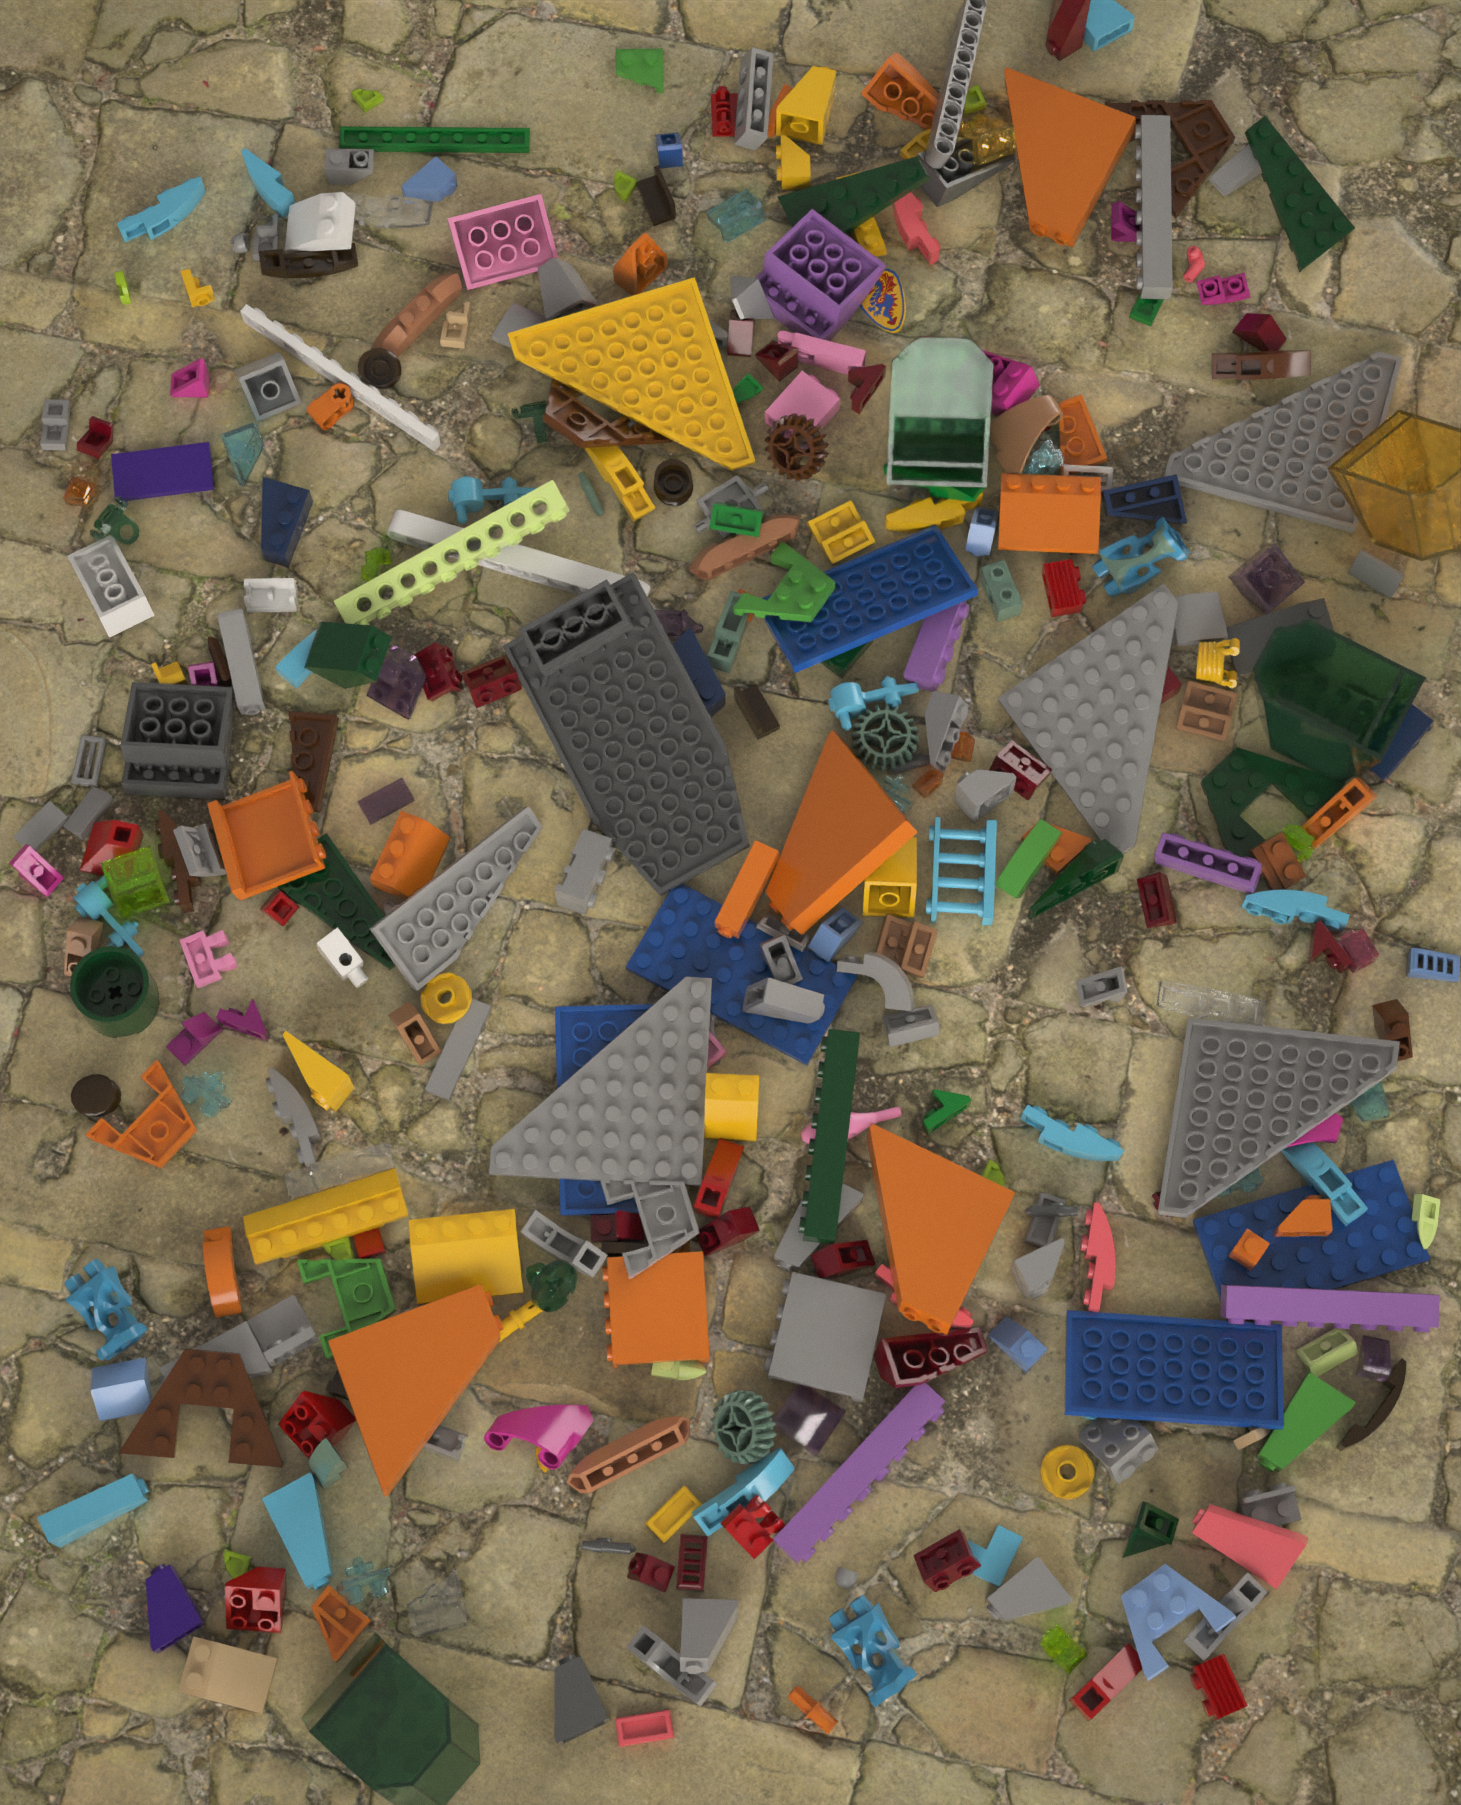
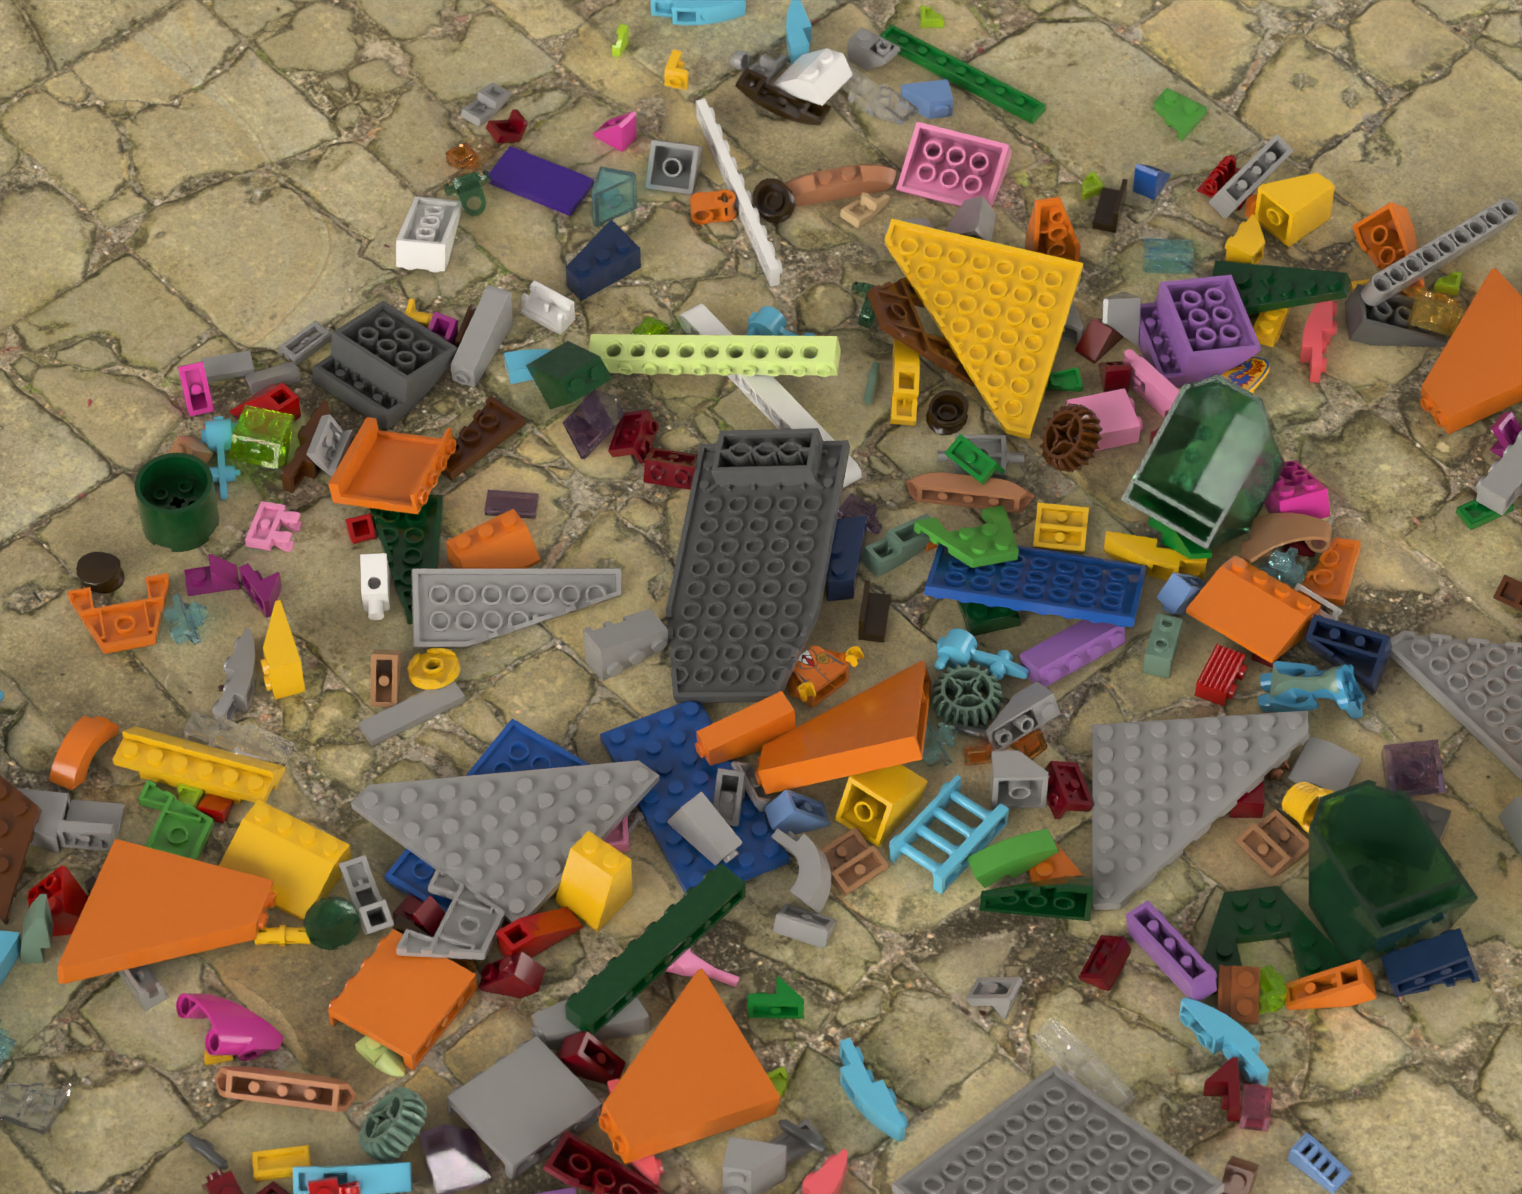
camera: 35 degrees right, 20 degrees down
(758, 792) = (821, 673): none -> orange torso

